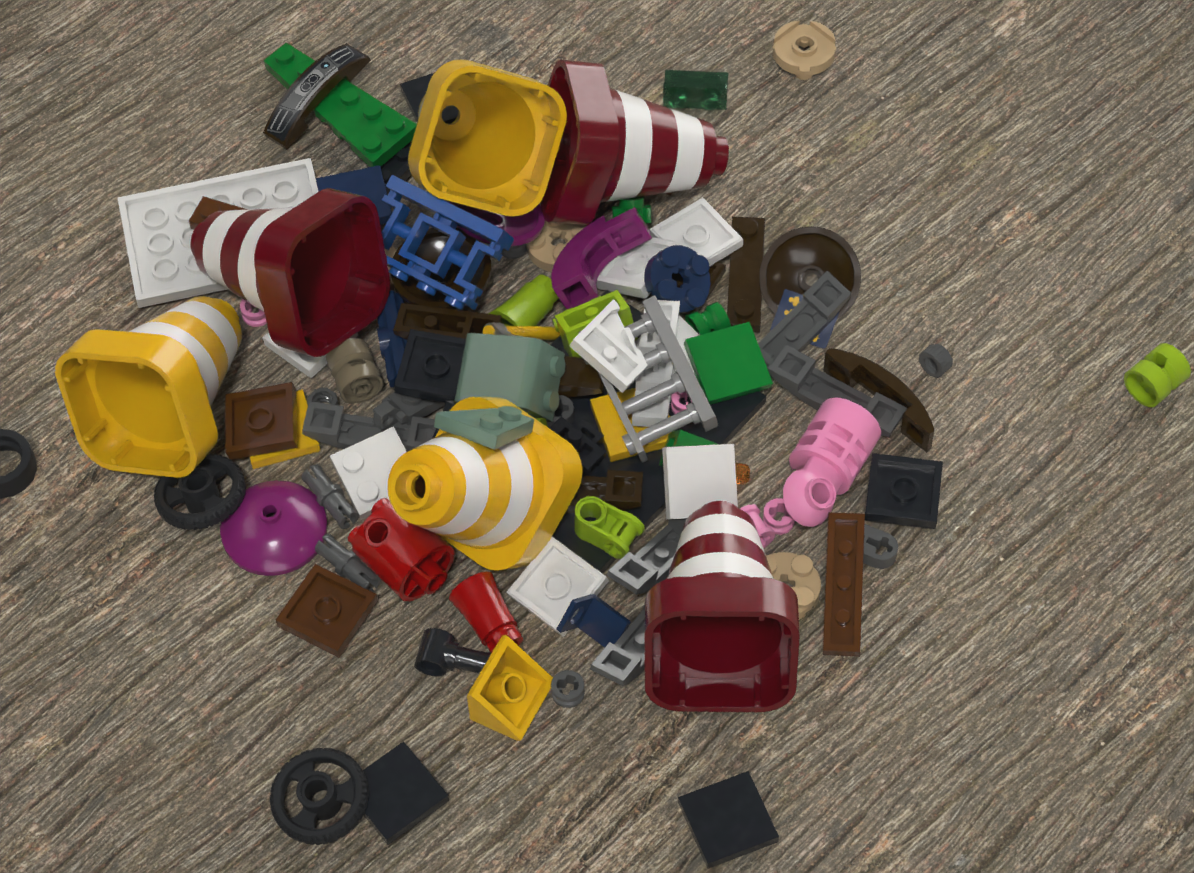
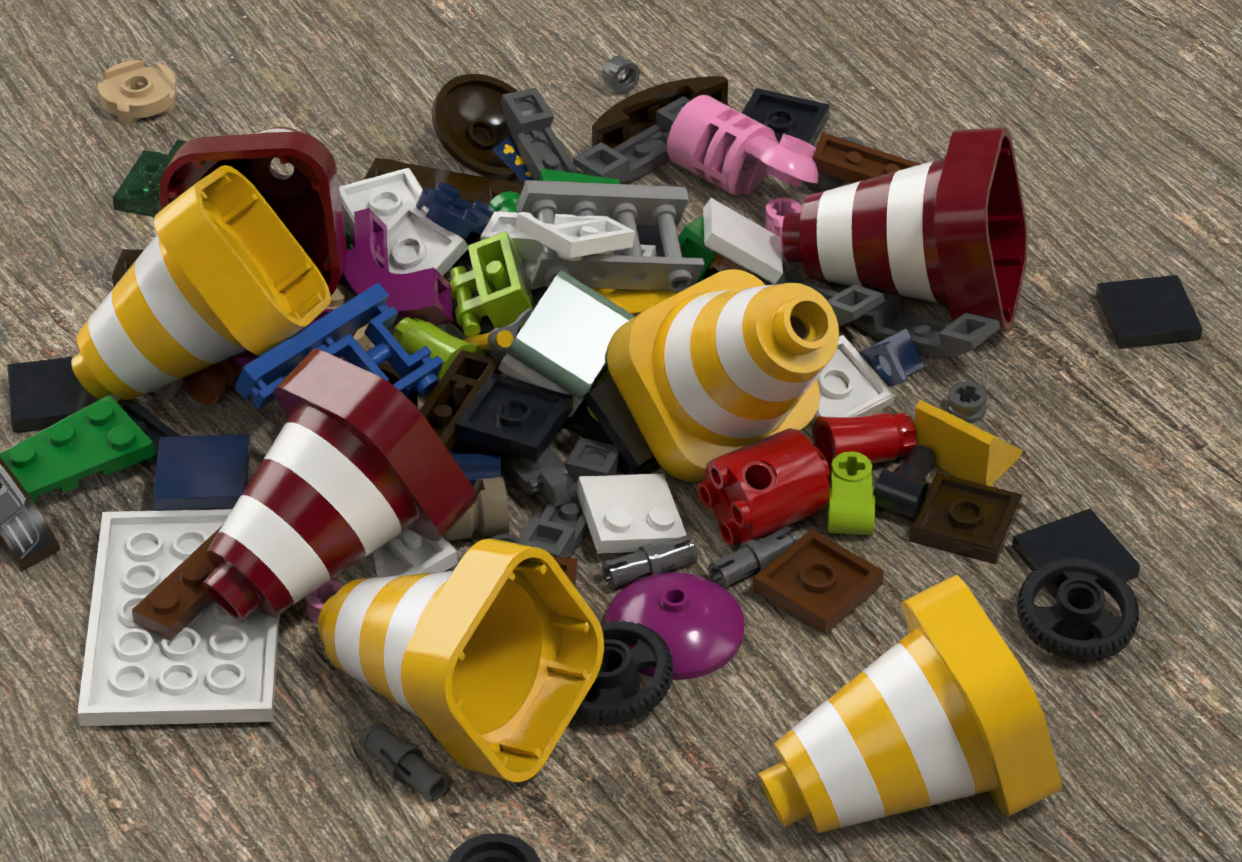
camera: 80 degrees left, 15 degrees down
(136, 696) = (919, 726): none -> yellow cone
(414, 614) = (851, 495): none -> lime piece
(427, 707) = (965, 518): none -> dark brown tile
(486, 426) = (705, 288): sand green wing -> none

